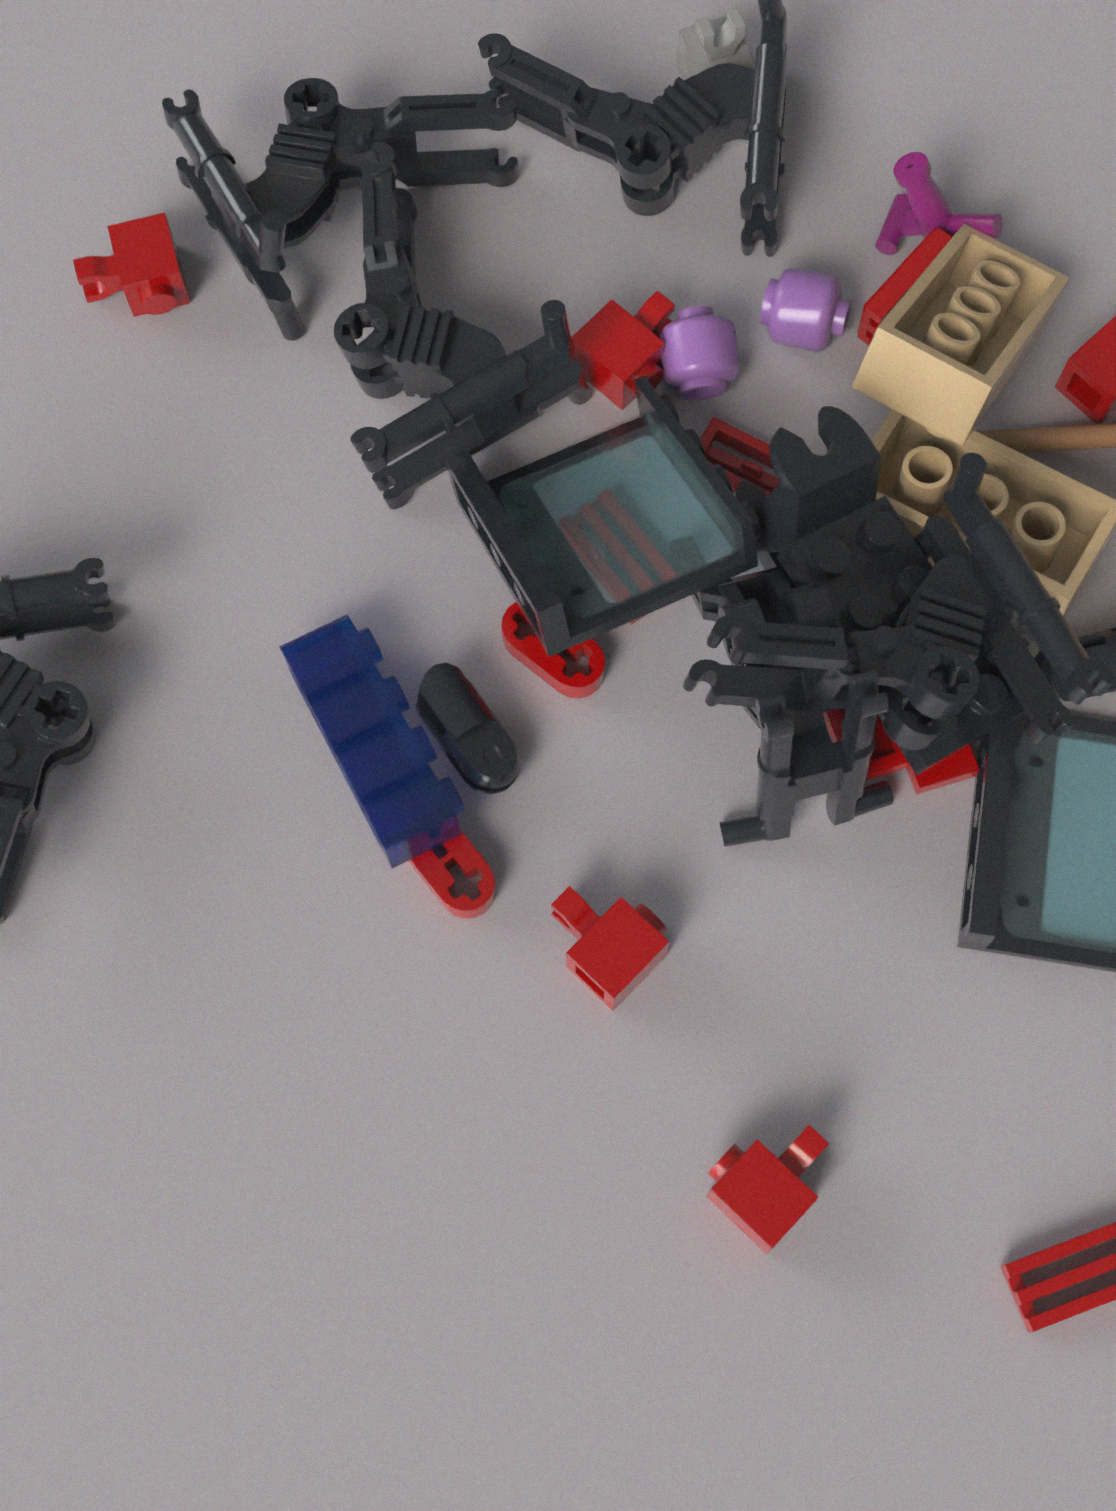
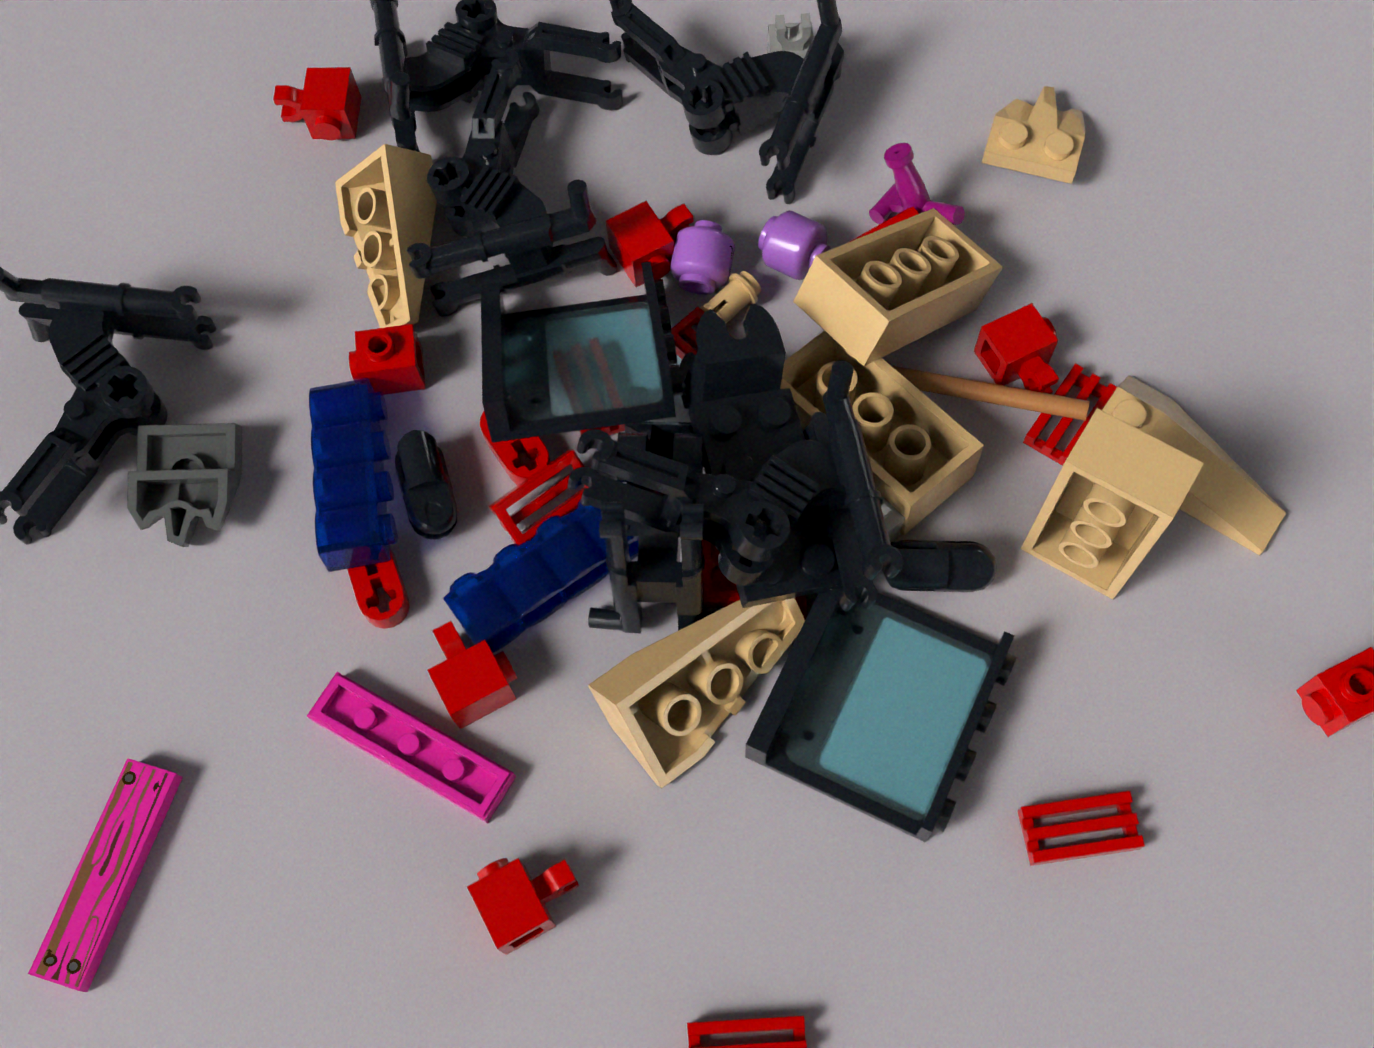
camera: 20 degrees right, 5 degrees down
(159, 800) = (185, 476): none -> dark grey plate
(258, 1307) = (105, 876): none -> dark pink tile
(291, 403) = (386, 210): none -> tan wedge
(359, 582) = (389, 359): none -> red brick
(565, 1048) = (412, 747): none -> dark pink tile
(571, 728) = (510, 522): none -> red tile
(650, 797) = (532, 578): none -> clear blue brick
(757, 386) = (734, 296): none -> tan pin
(861, 888) = (684, 686): none -> tan wedge
(1047, 99) = (1037, 138): none -> tan plate

